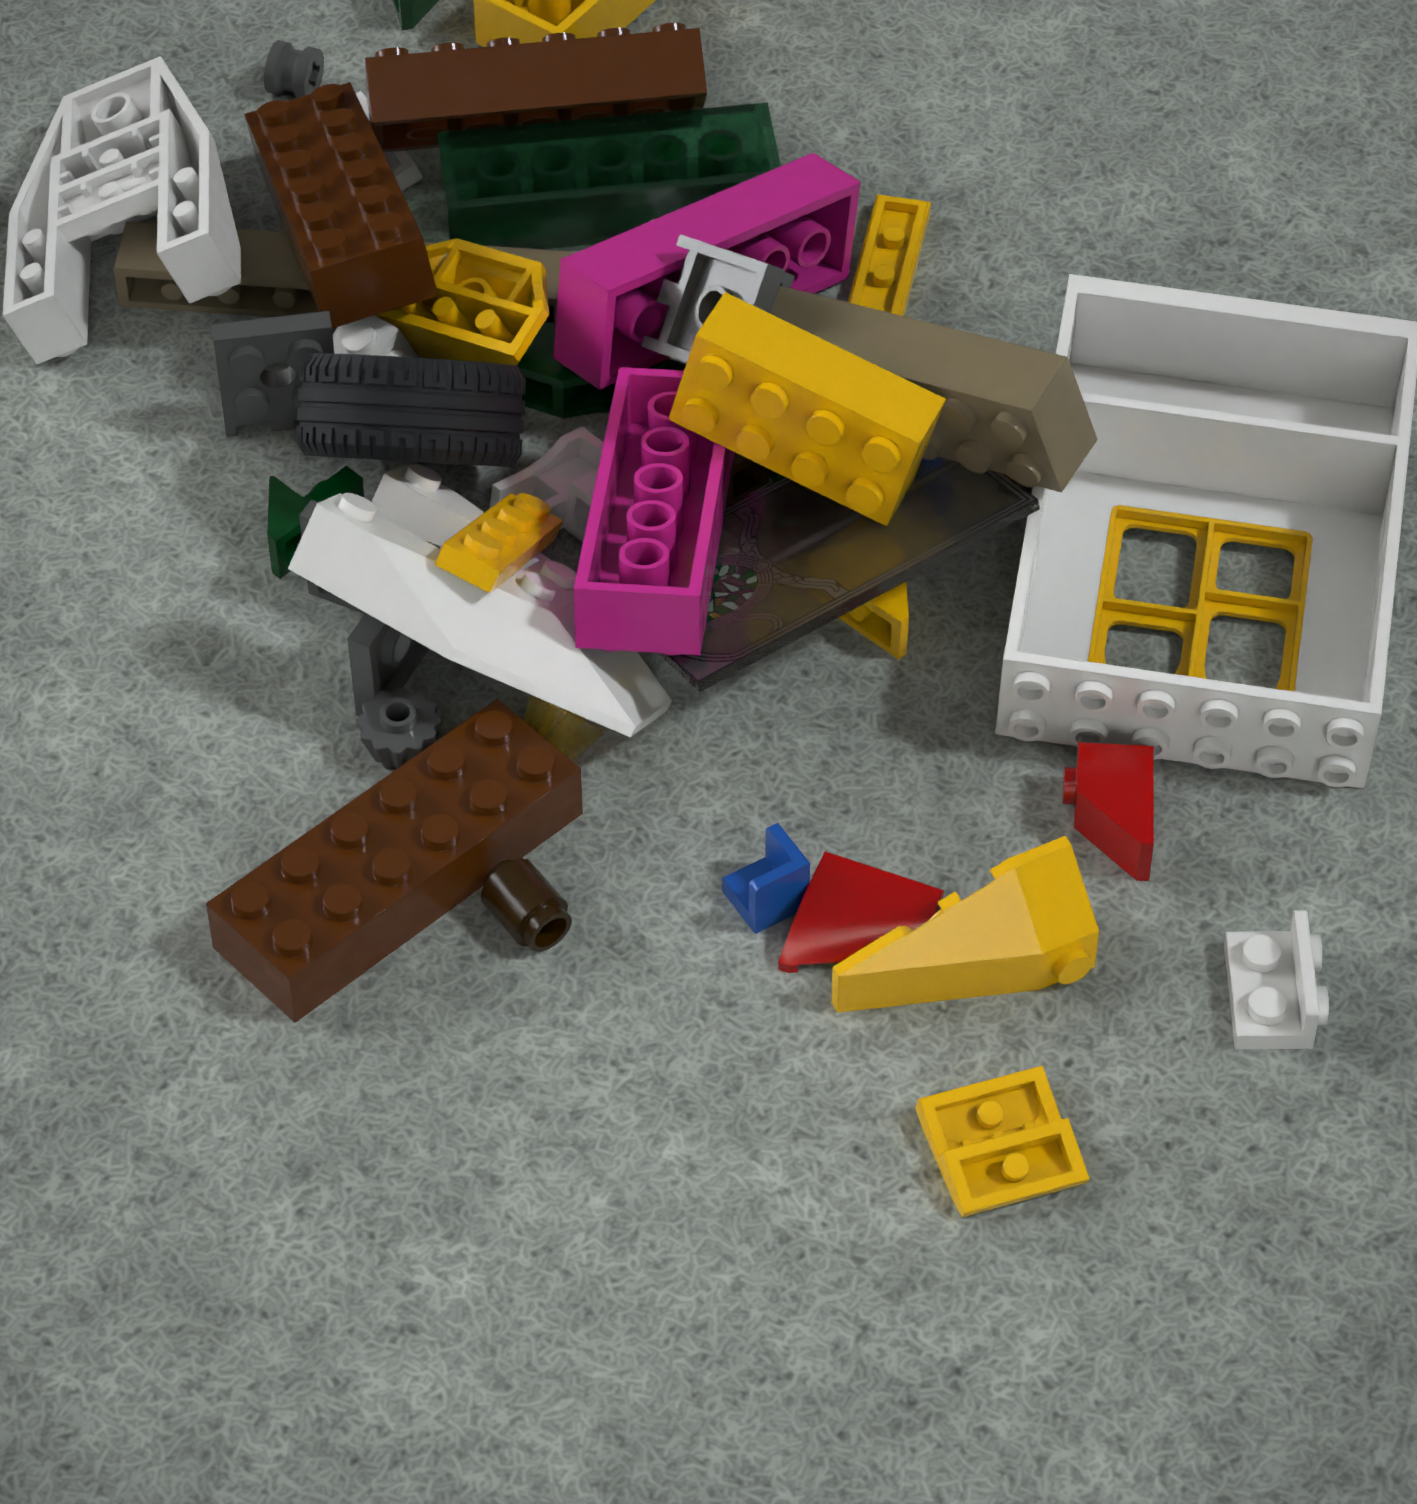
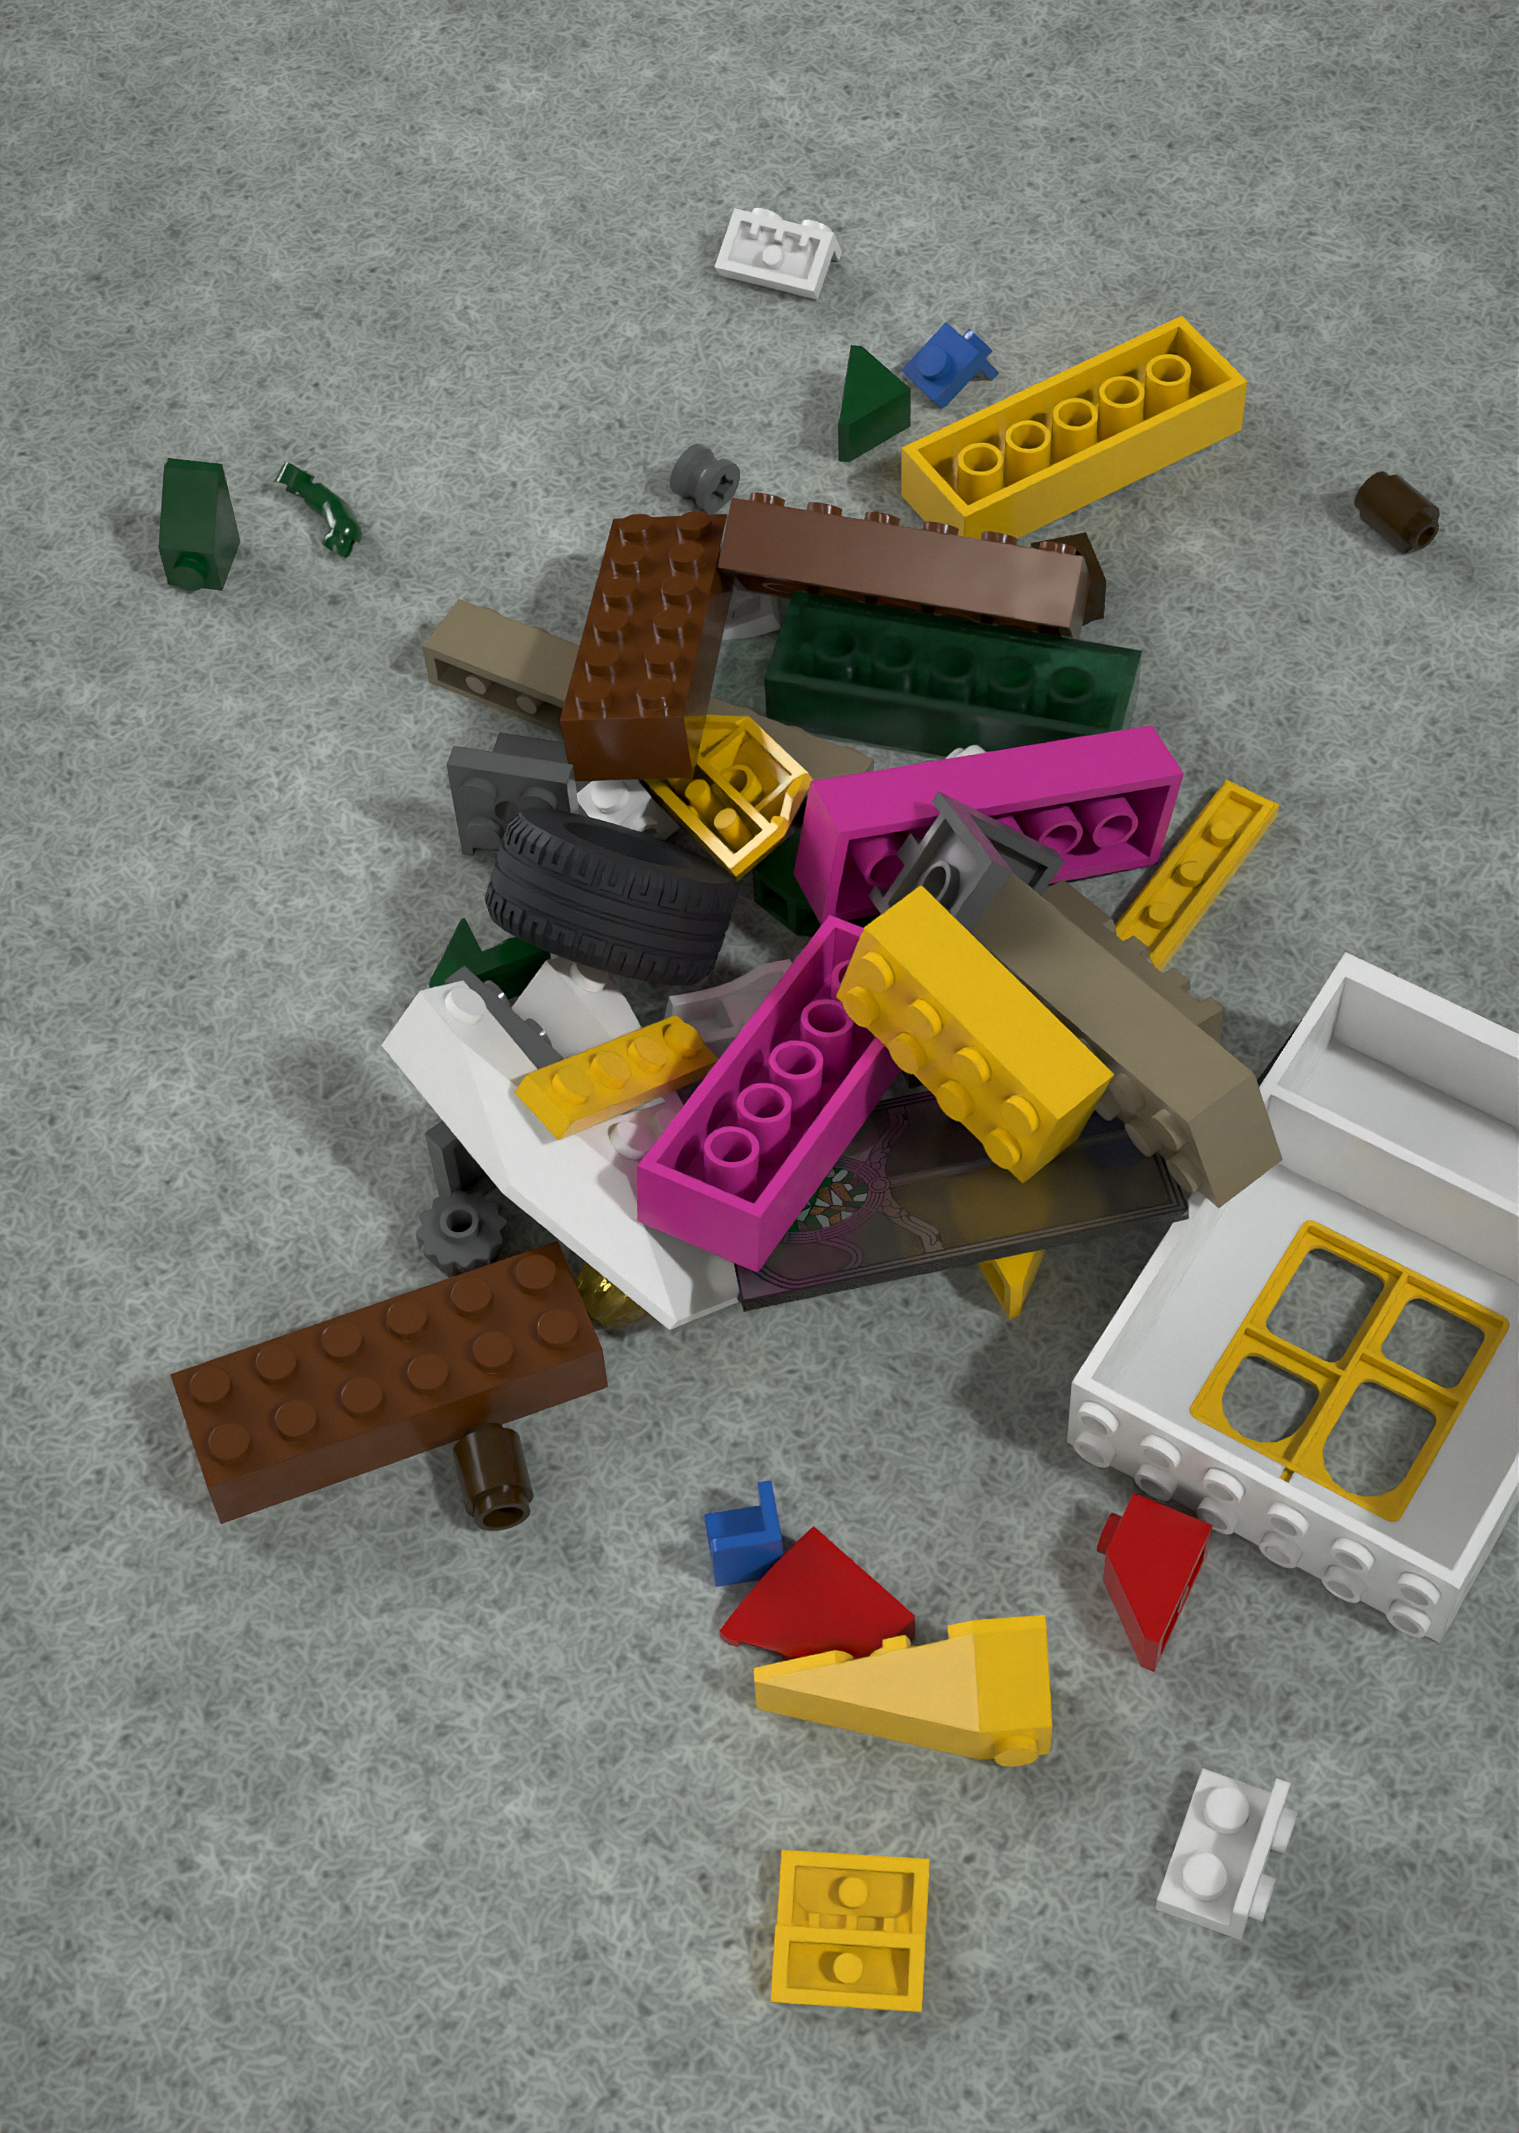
camera: 25 degrees right, 5 degrees up
(109, 159) = (471, 536): white wedge -> none

